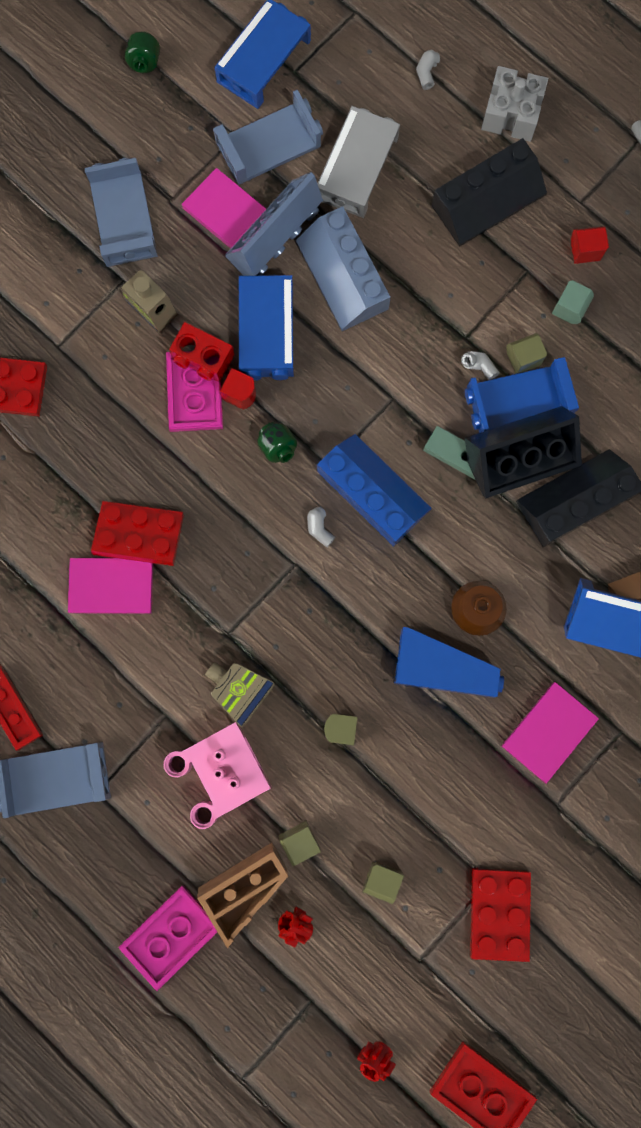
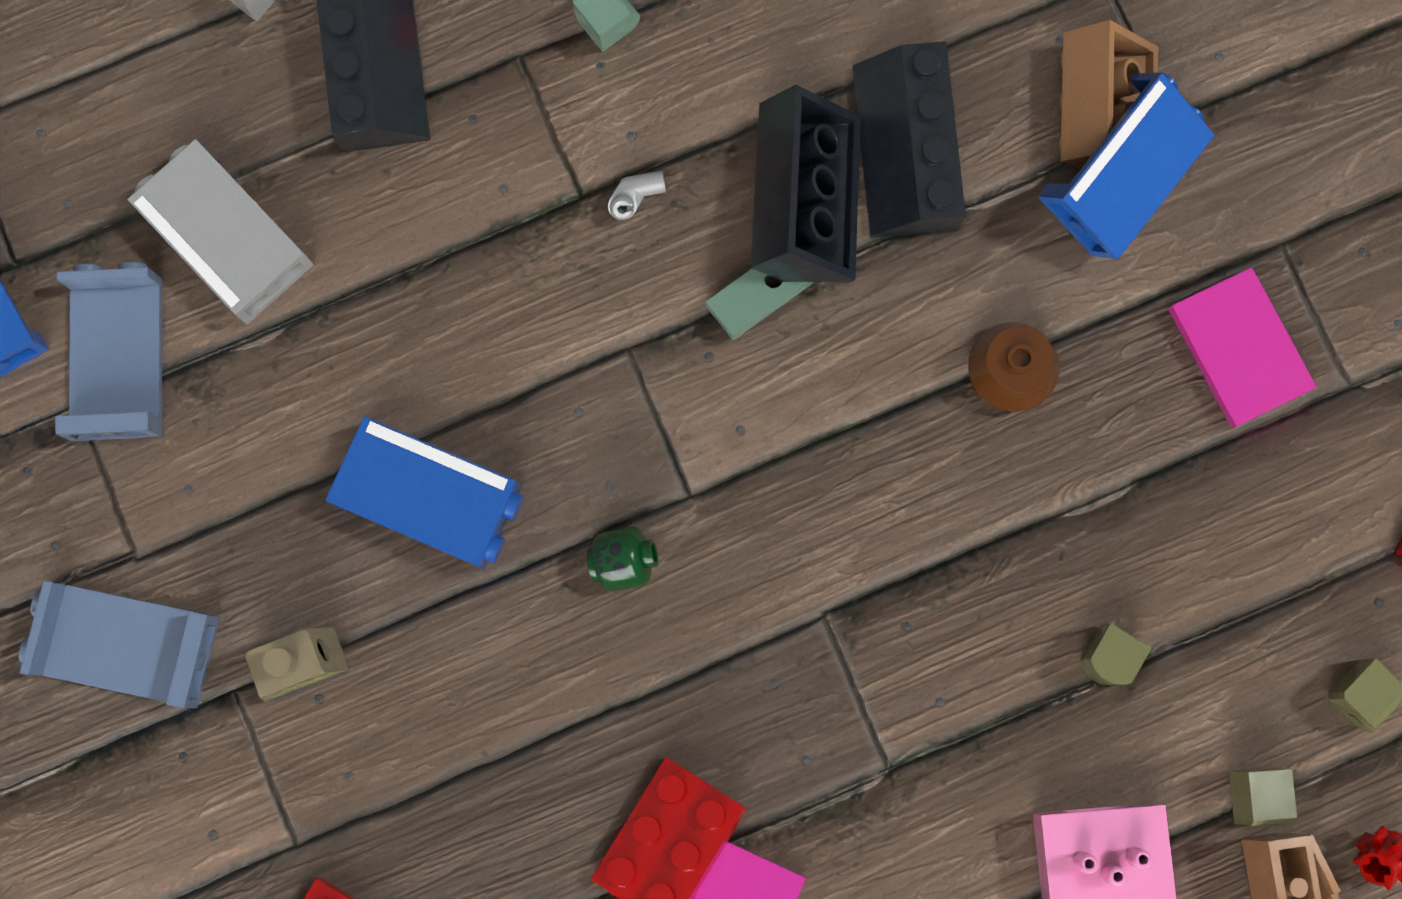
camera: 65 degrees left, 0 degrees up
(191, 399) = (473, 653): dark pink tile -> none
(206, 347) = (417, 603): red brick -> none
(223, 207) = (201, 472): dark pink tile -> none
(238, 389) = (508, 581): red piece -> none
(239, 690) = (990, 788): dark tan torso -> none
(276, 226) = (268, 407): sand blue slope -> none
(316, 526) = (779, 555): light grey arm -> none
(343, 269) = (387, 333): sand blue slope -> none
(373, 489) = (762, 441): blue slope -> none
(428, 60) = (111, 58): light grey arm -> none
(437, 666) = (1080, 467): blue slope -> none
(520, 395) = (715, 157): blue panel -> none
(526, 353) = (651, 116): olive piece -> none

